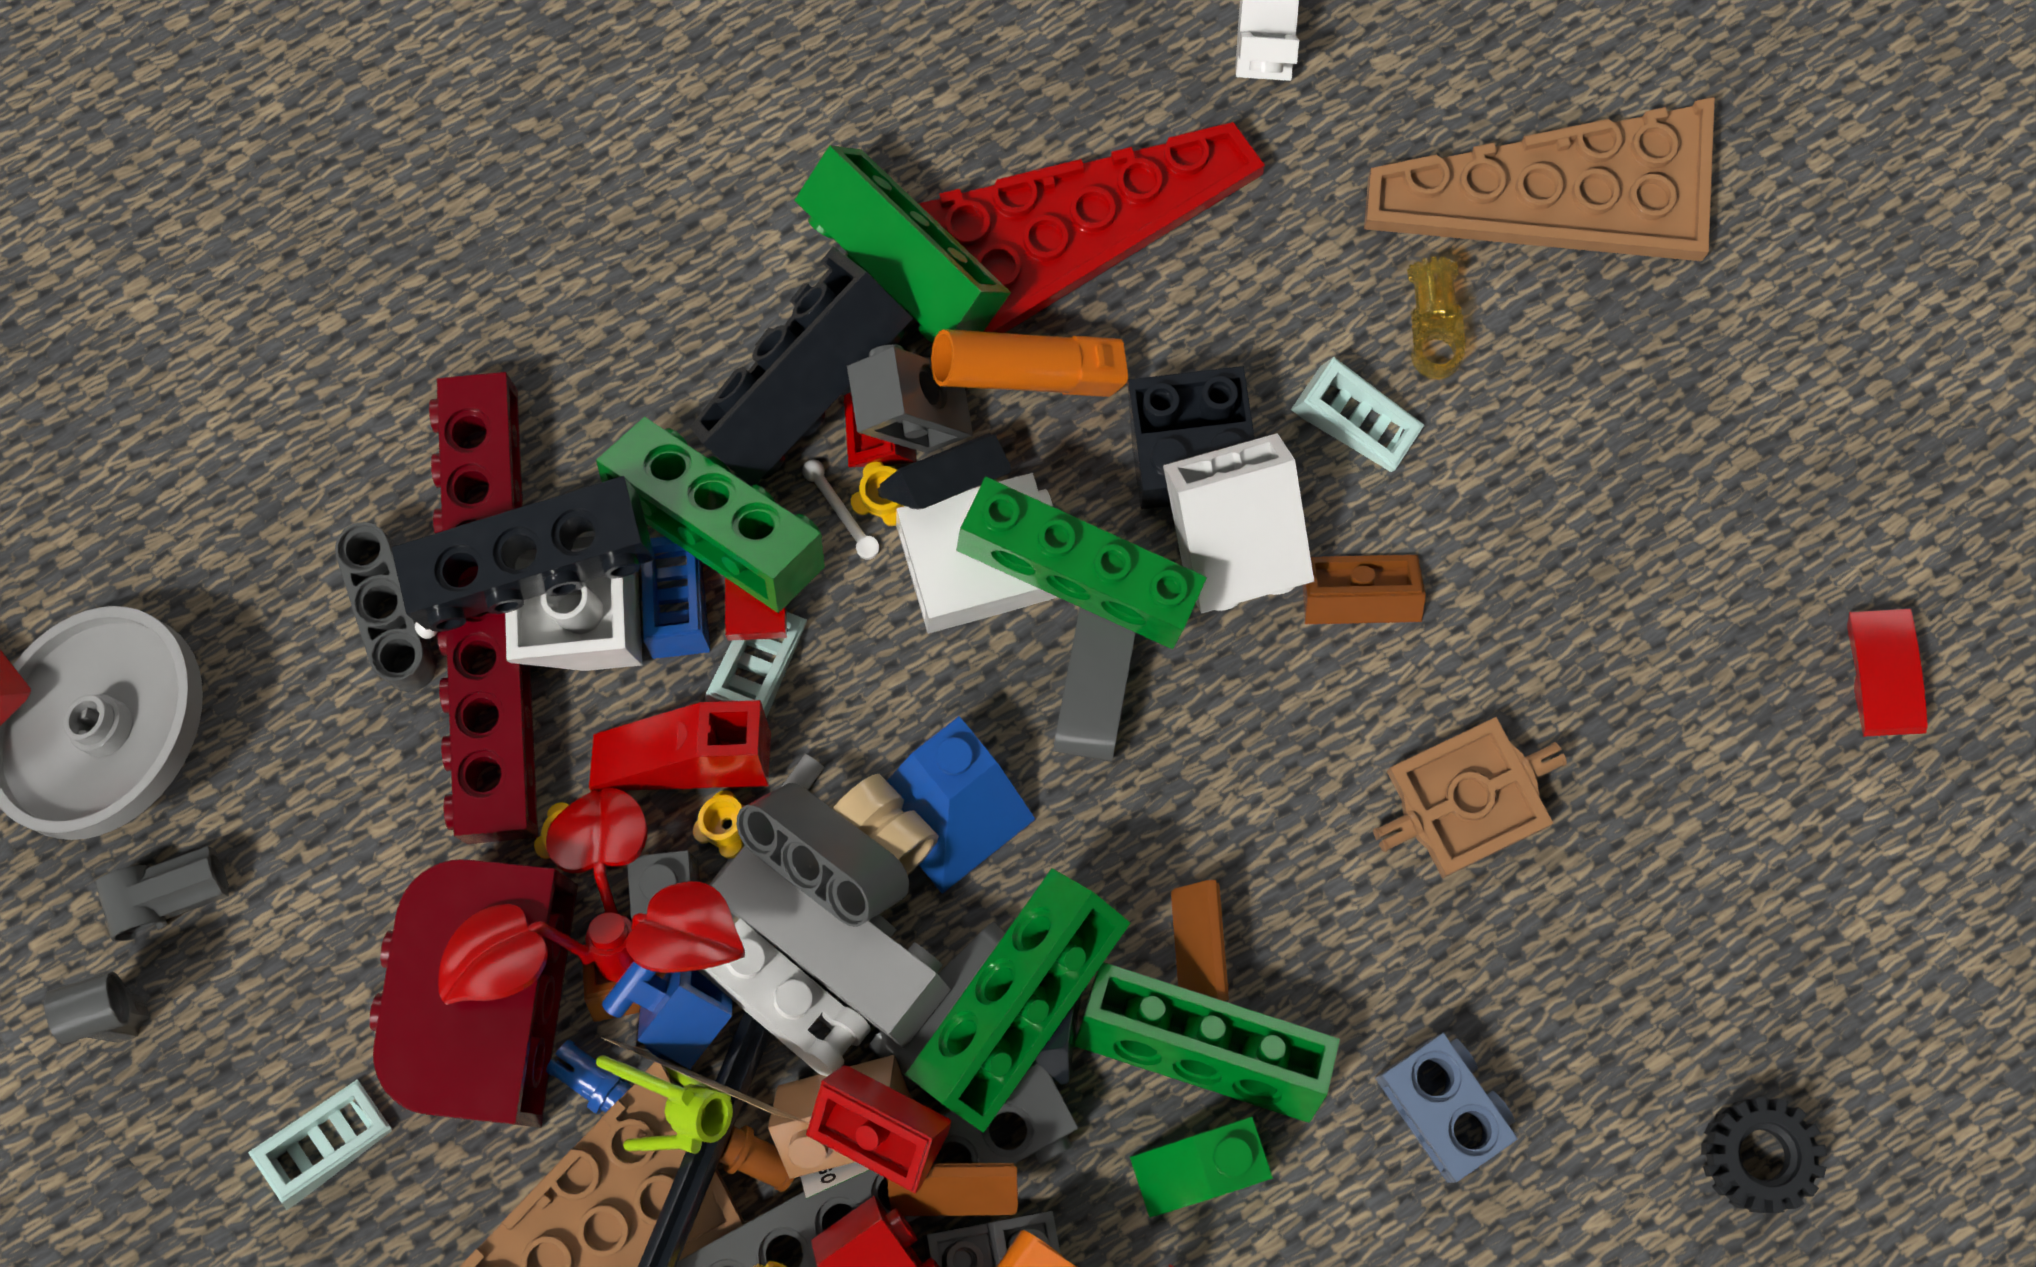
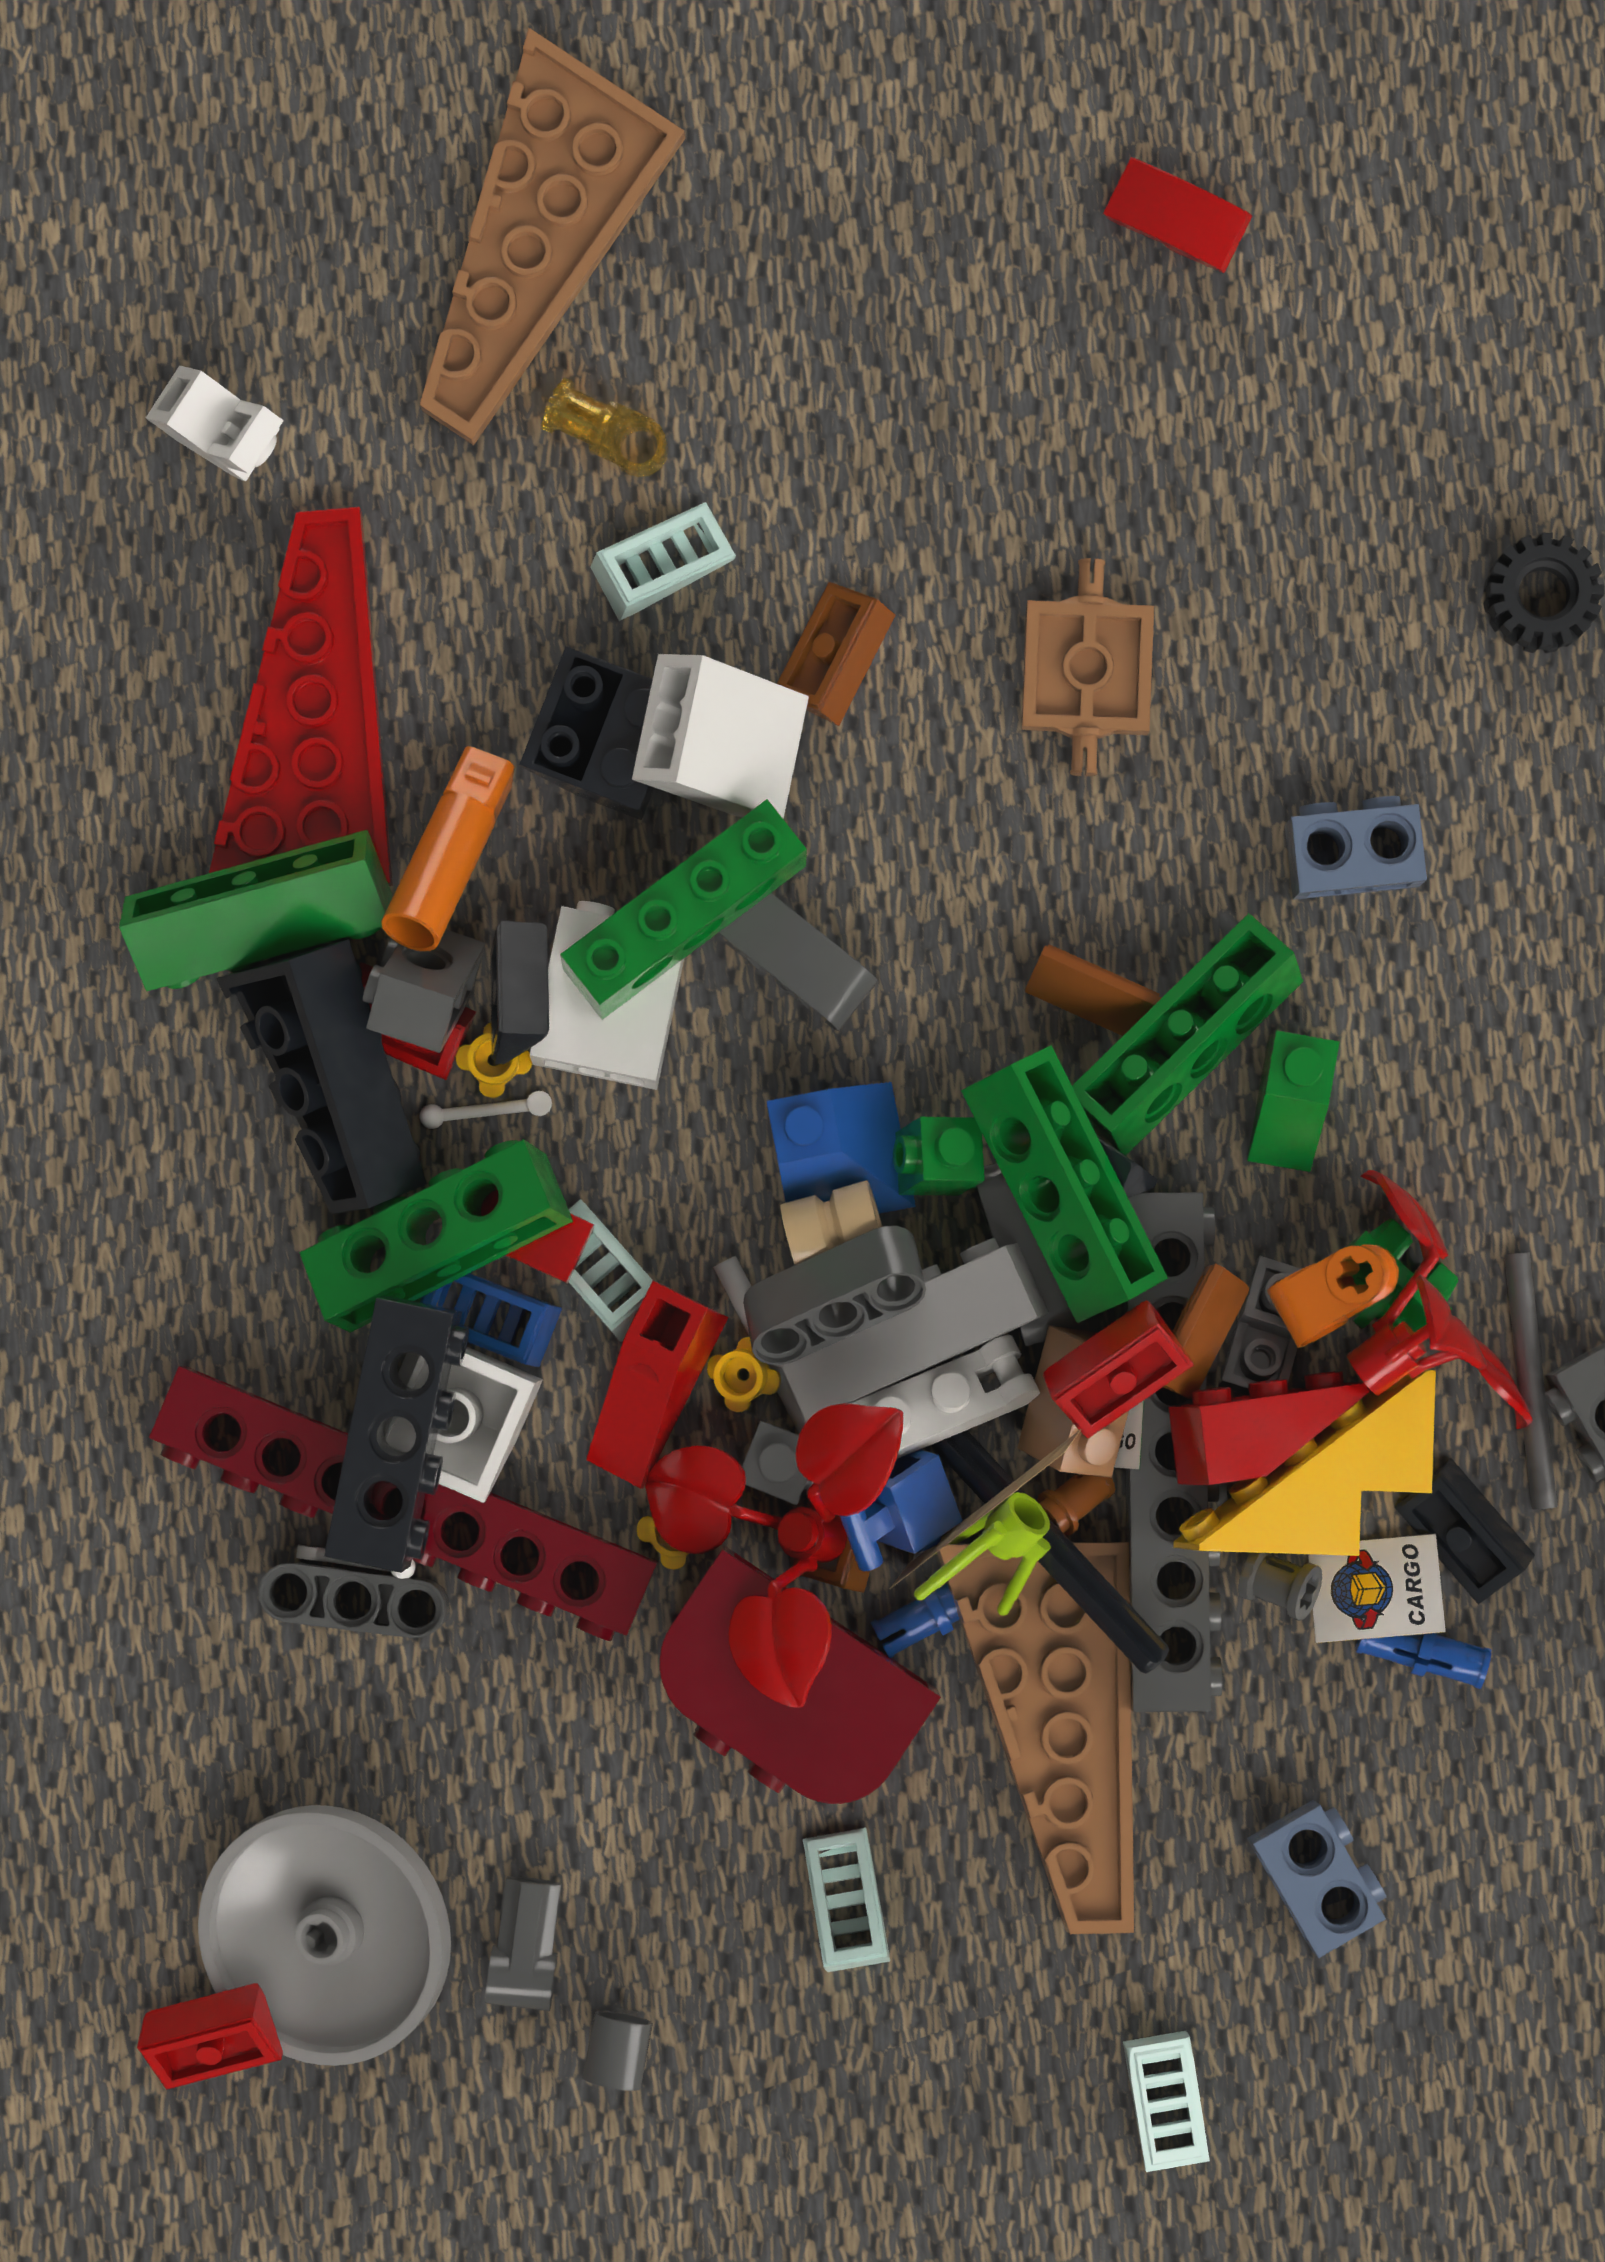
camera: 65 degrees left, 10 degrees up
(989, 884) = (939, 1156): none -> green brick

